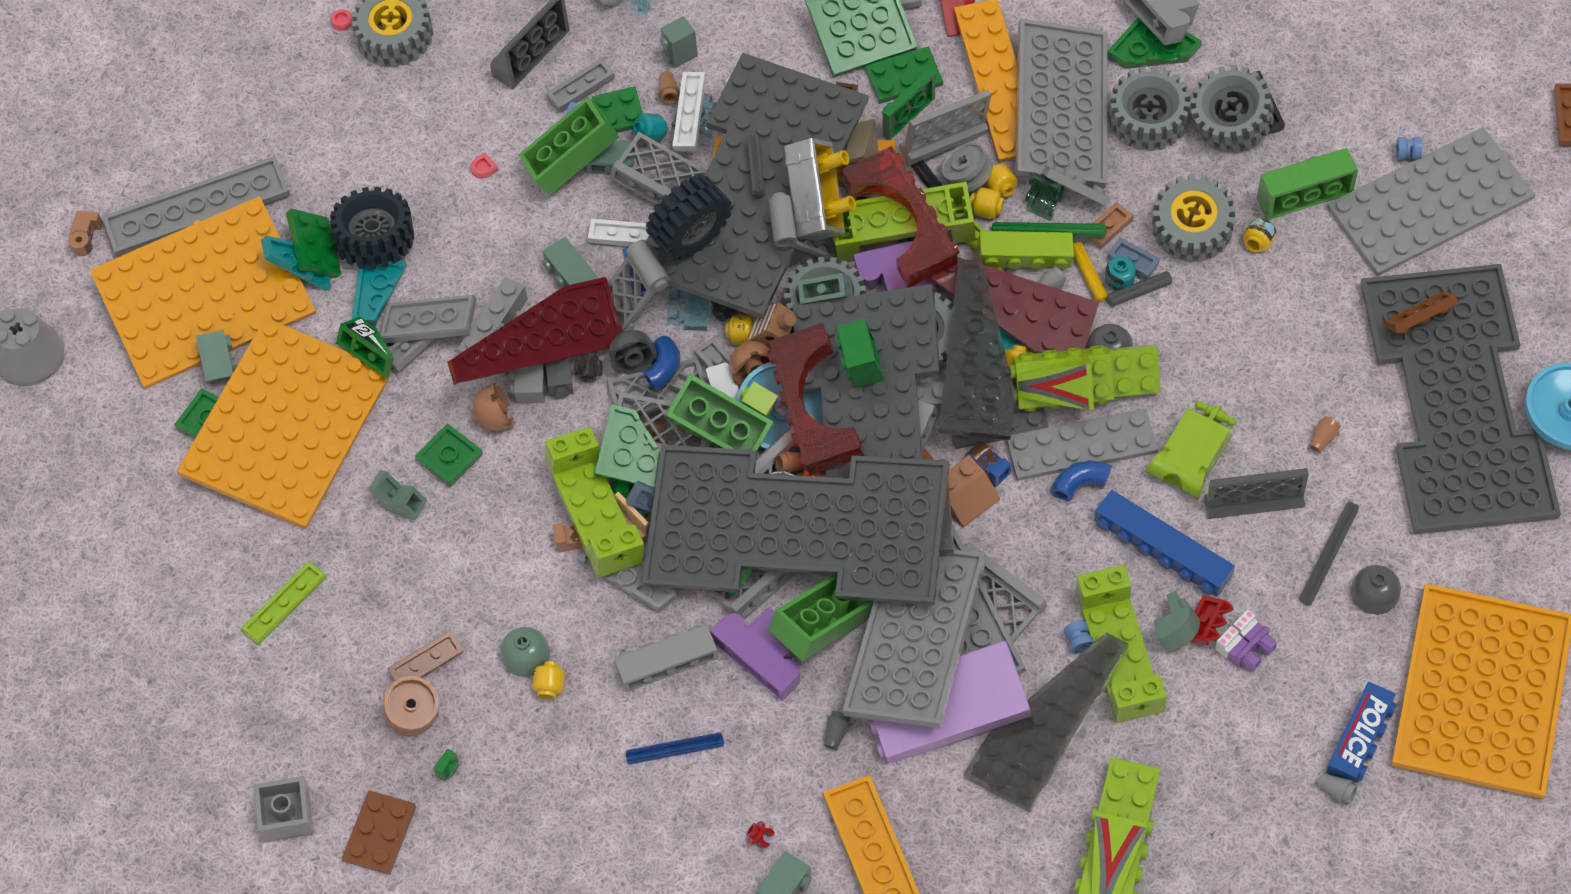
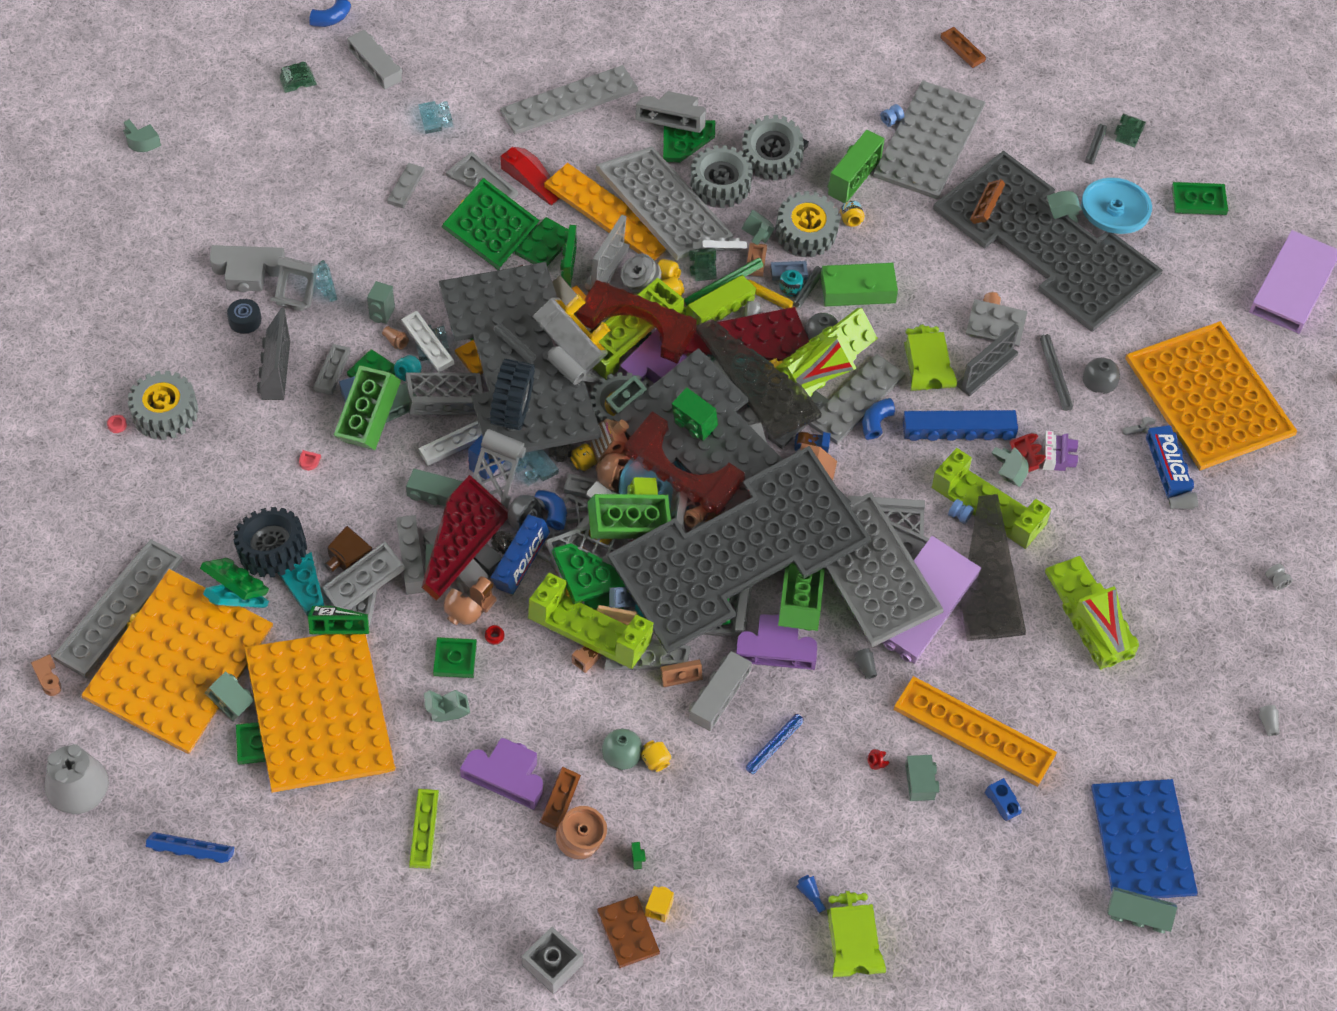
camera: 45 degrees left, 5 degrees down
(71, 478) = (196, 848): none -> blue plate
(399, 600) = (506, 772): none -> medium lavender brick
(427, 826) = (659, 903): none -> yellow brick
(437, 279) = (346, 550): none -> reddish brown torso
(504, 450) = (494, 629): none -> red plate
(523, 409) = (482, 593): none -> nougat leg
(591, 390) = (520, 554): none -> blue brick
(644, 614) = (681, 673): none -> nougat plate
(1140, 190) = (758, 227): none -> sand green brick
(1193, 319) = (859, 284): none -> bright green brick
(1306, 447) = (992, 320): none -> light grey plate
(1370, 676) = (1140, 428): none -> light grey bar
(1508, 368) = (1064, 204): none -> sand green brick

